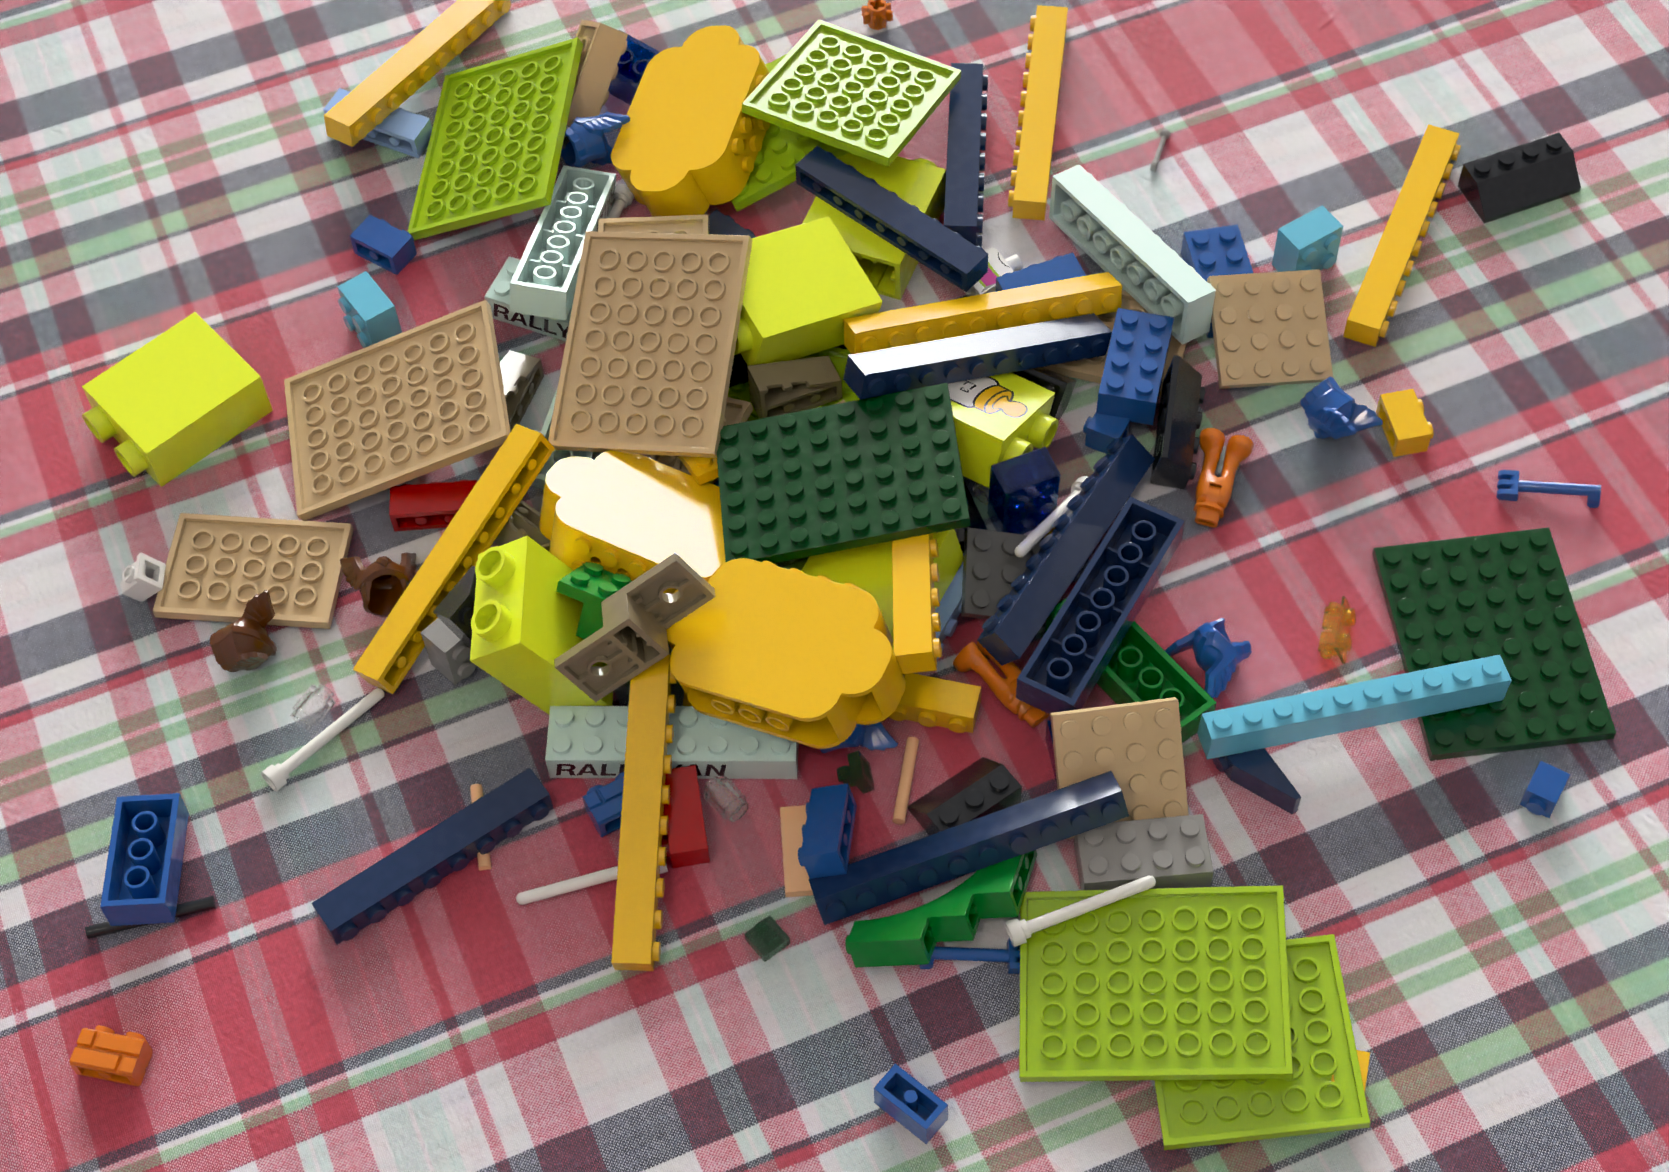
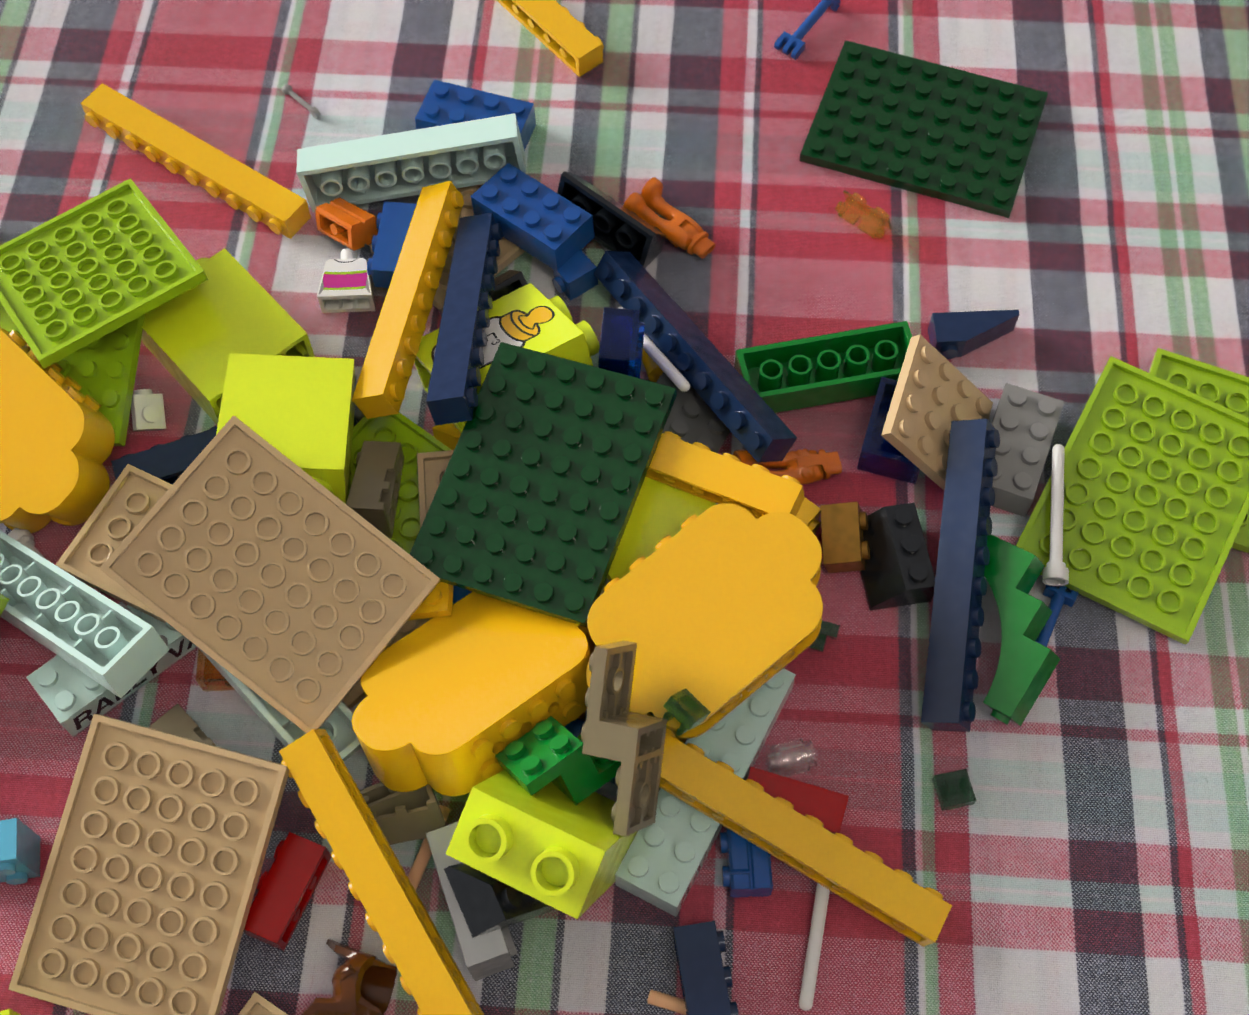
camera: 65 degrees left, 5 degrees up
(682, 661) = (686, 710): none -> clear green tile
(779, 209) = (147, 411): none -> white bracket
(795, 876) = (874, 720): light nougat tile -> none
(828, 831) = (882, 681): blue brick -> none
(892, 218) = (252, 312): dark blue brick -> none
(905, 780) = (851, 602): light nougat bar -> none
(910, 1103) = (1186, 739): blue brick -> none
(957, 749) = (843, 537): none -> pearl gold brick
(964, 154) = (205, 231): dark blue brick -> none
(1043, 240) = (346, 223): none -> orange brick
(1100, 608) = (785, 354): dark blue brick -> none
(1213, 654) = (845, 304): blue helmet -> none
(1270, 329) = (556, 110): tan plate -> none
(1308, 242) = (488, 47): medium azure brick -> none
(1335, 412) = (665, 110): blue helmet -> none
(1353, 706) = (960, 235): medium azure brick -> none
(1404, 422) = (695, 76): yellow brick -> none
(1544, 789) = (1078, 158): blue brick -> none

